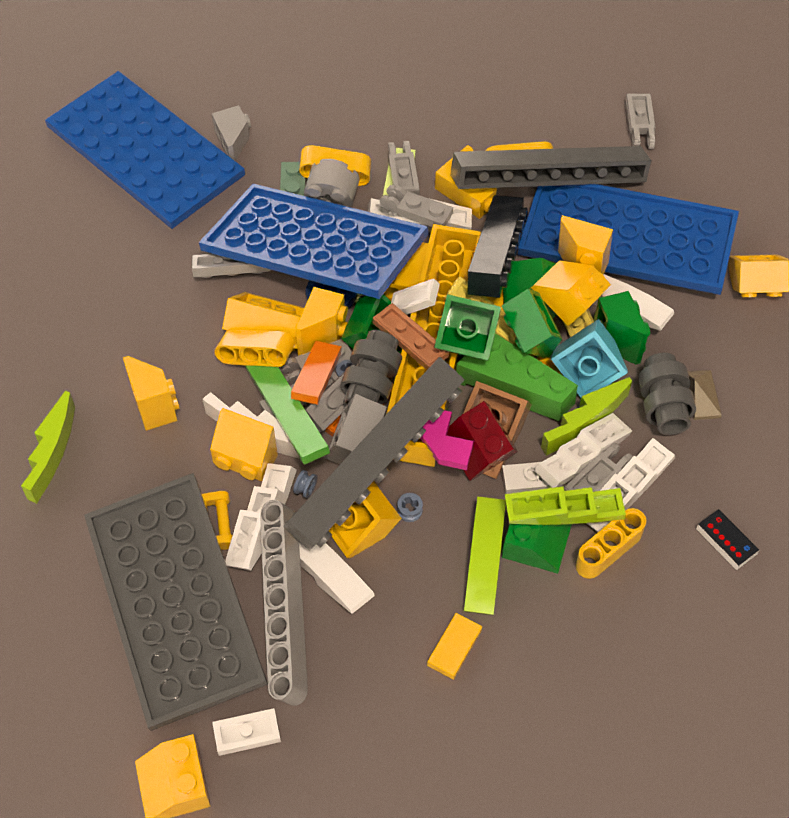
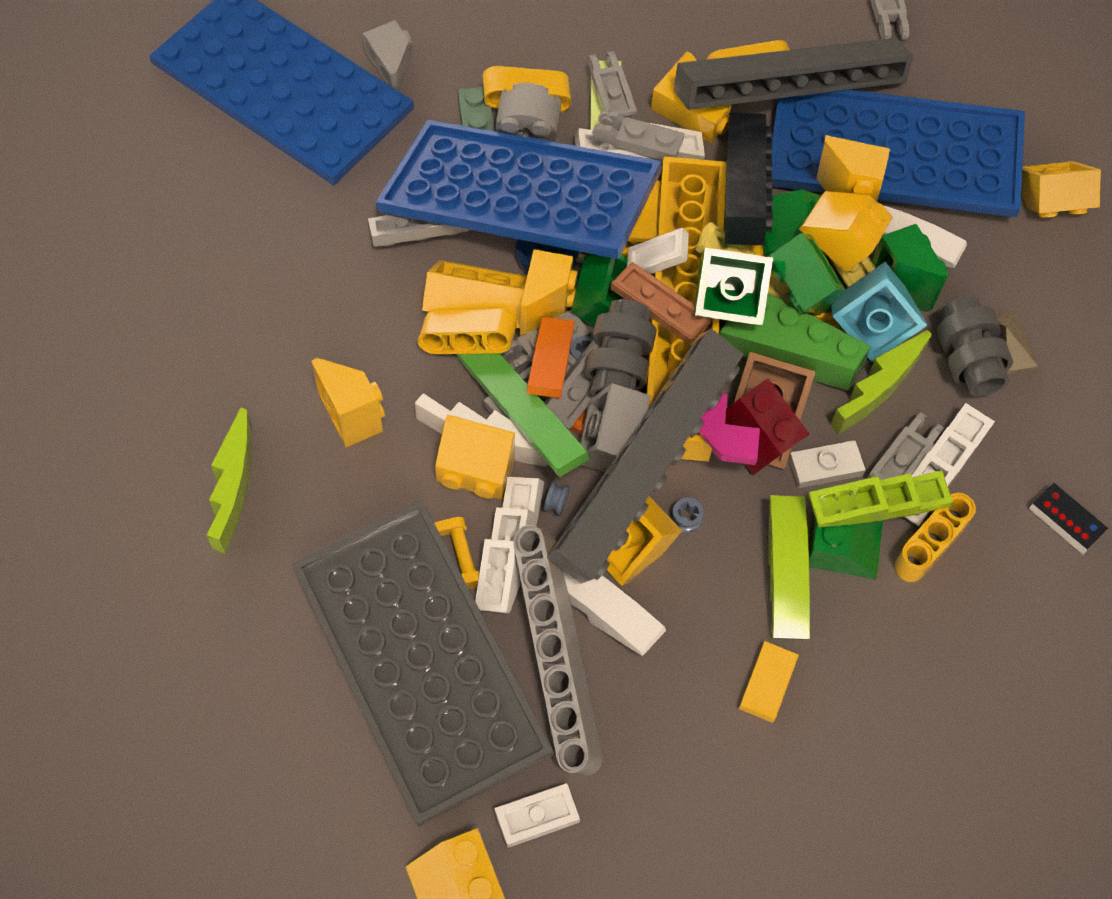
camera: 10 degrees left, 5 degrees up
(579, 452) = (884, 426): white slope -> none

